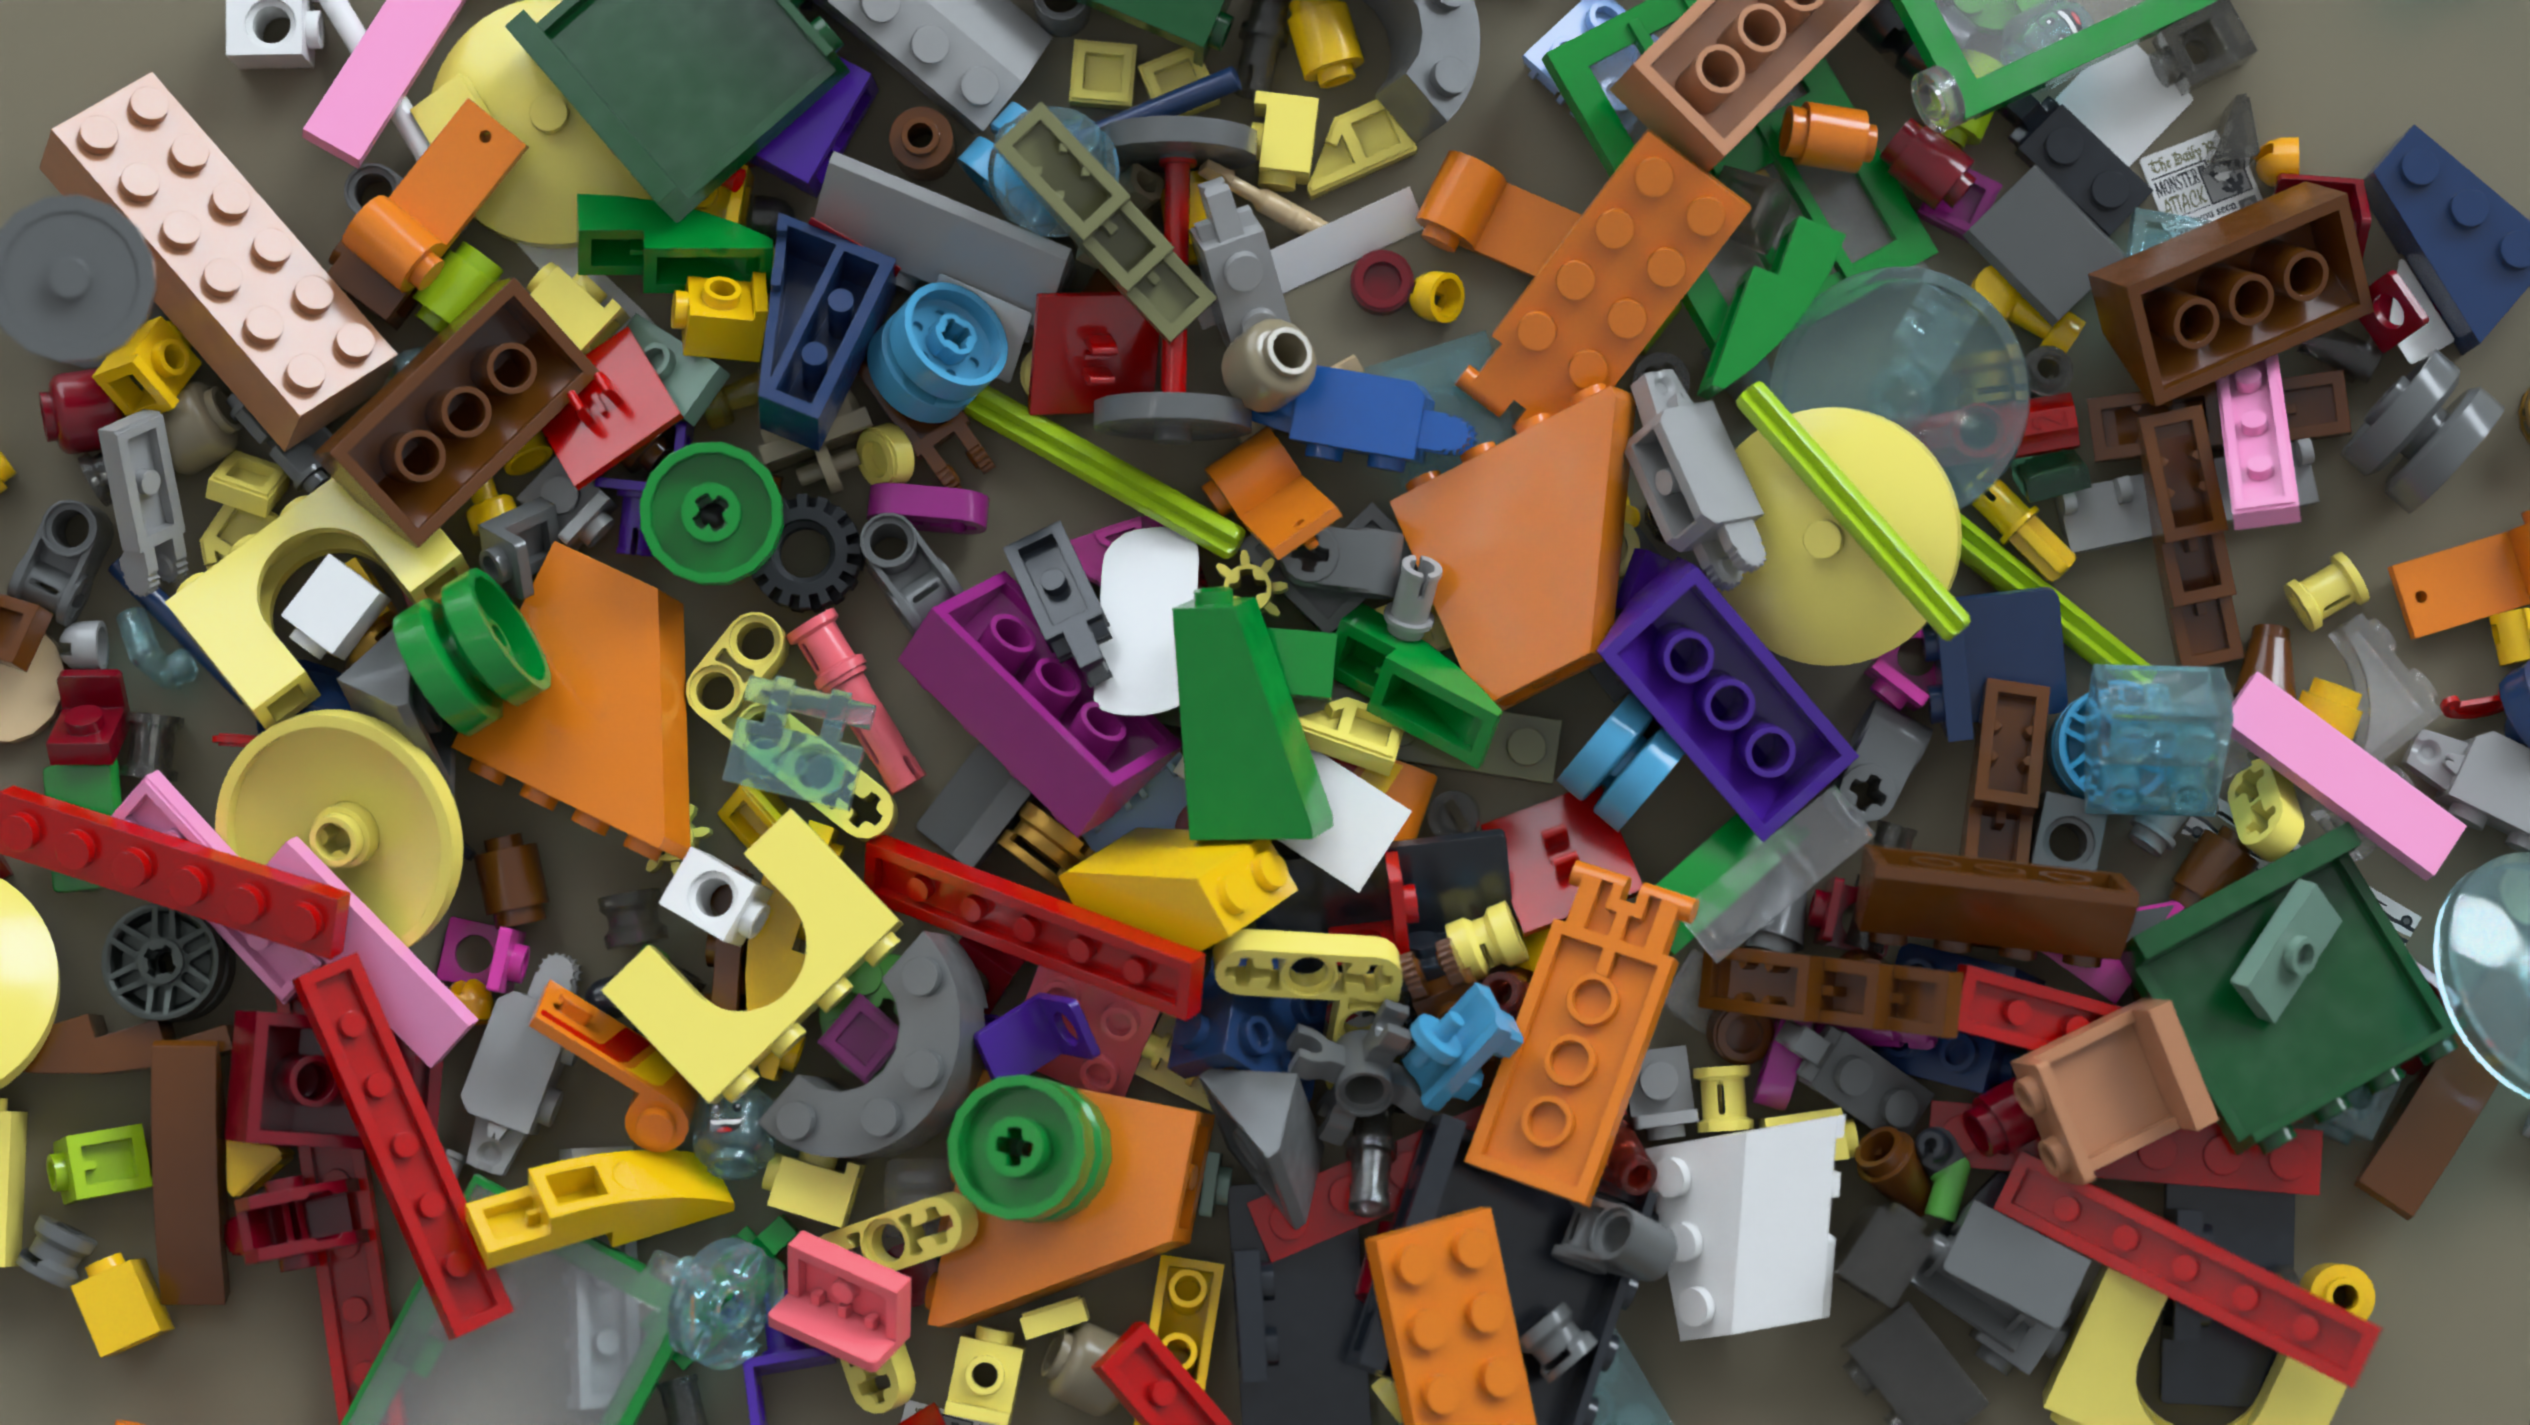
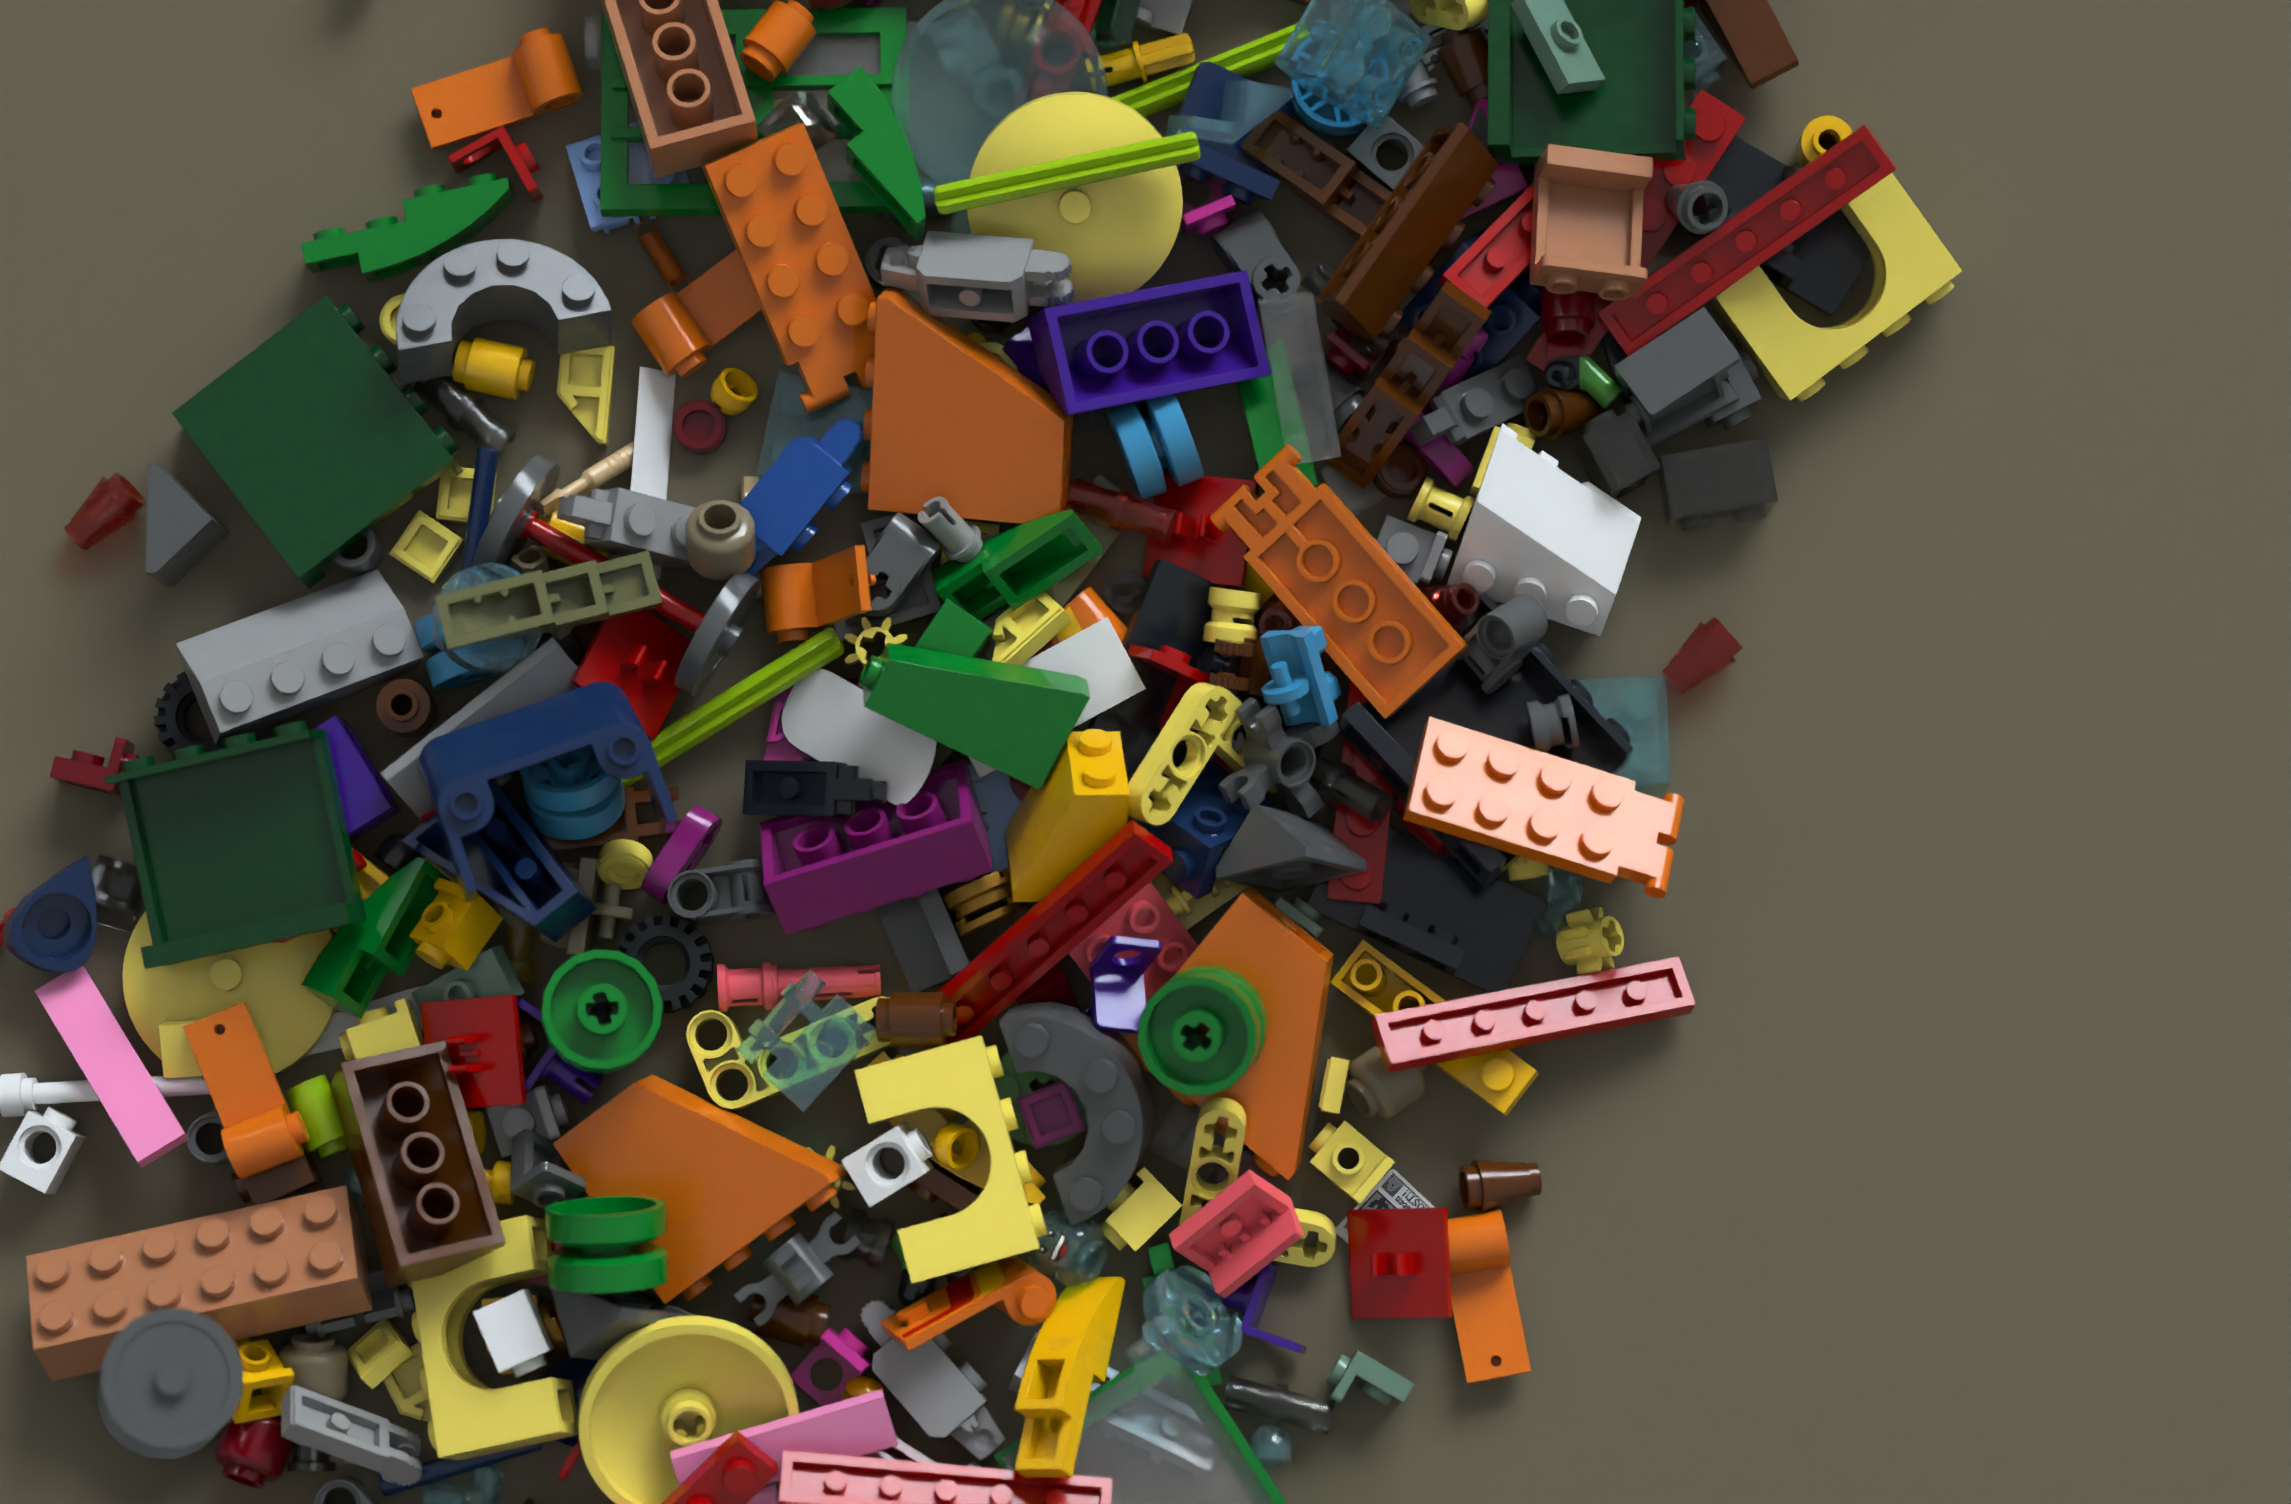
camera: 65 degrees left, 0 degrees up
(558, 864) = (797, 1269): none -> dark grey pin
(751, 813) = (840, 1108): yellow slope -> none
(772, 971) = (966, 1150): none -> yellow hinge
(881, 843) = (915, 1019): none -> reddish brown brick
(890, 227) = (462, 761): none -> dark blue windscreen
(1285, 139) = (553, 437): light yellow brick -> none
(1534, 764) = (1121, 510): none -> clear red pin
(1536, 147) = (662, 257): none -> orange piece
(2027, 659) = (1242, 109): none -> clear light blue slope
(2194, 1196) = (1698, 205): none -> dark grey cone

